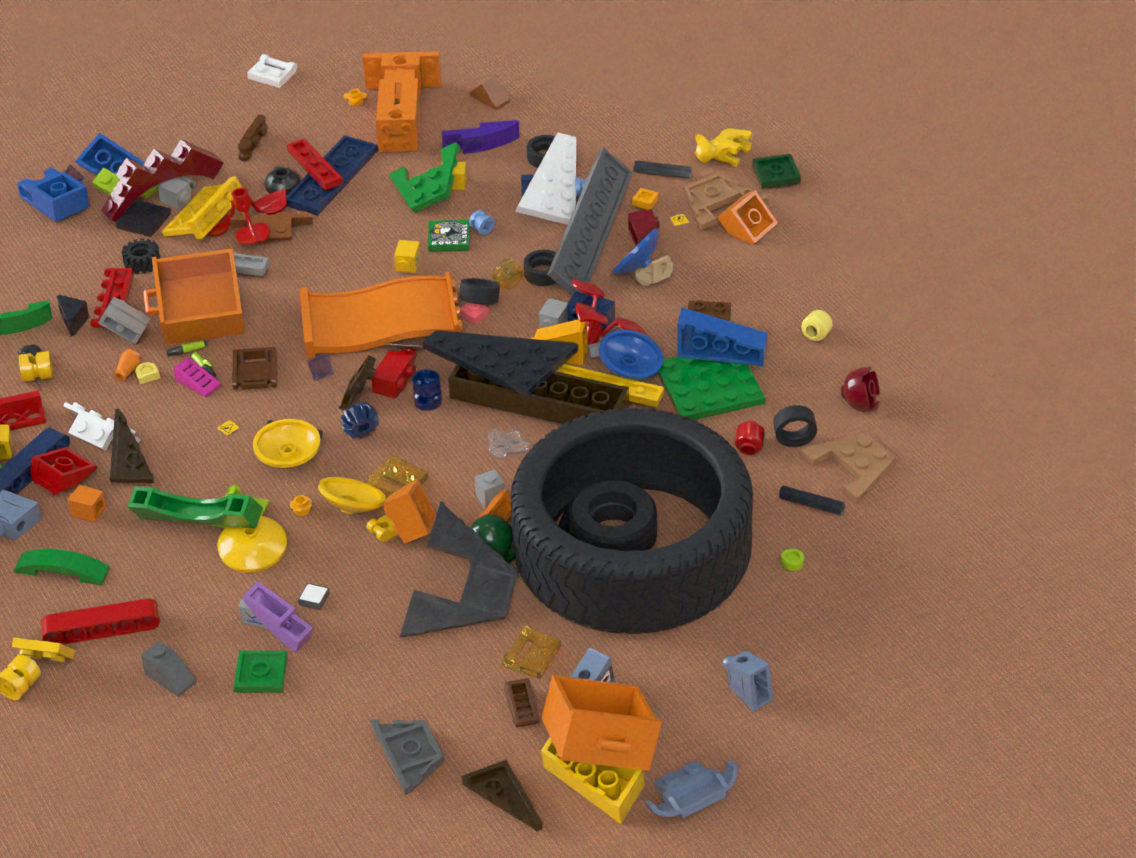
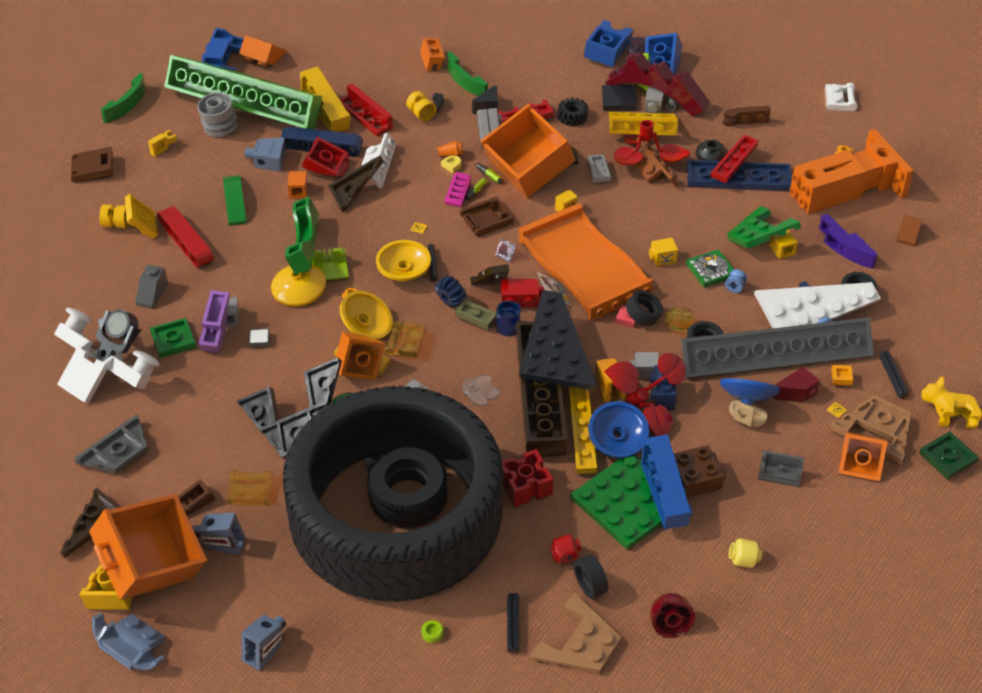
camera: 65 degrees right, 5 degrees up
(279, 755) = (83, 376): none -> white piece
(284, 302) = (565, 200): none -> yellow slope
(400, 415) = (476, 314): none -> olive plate
(733, 273) = (781, 468): none -> dark grey hinge

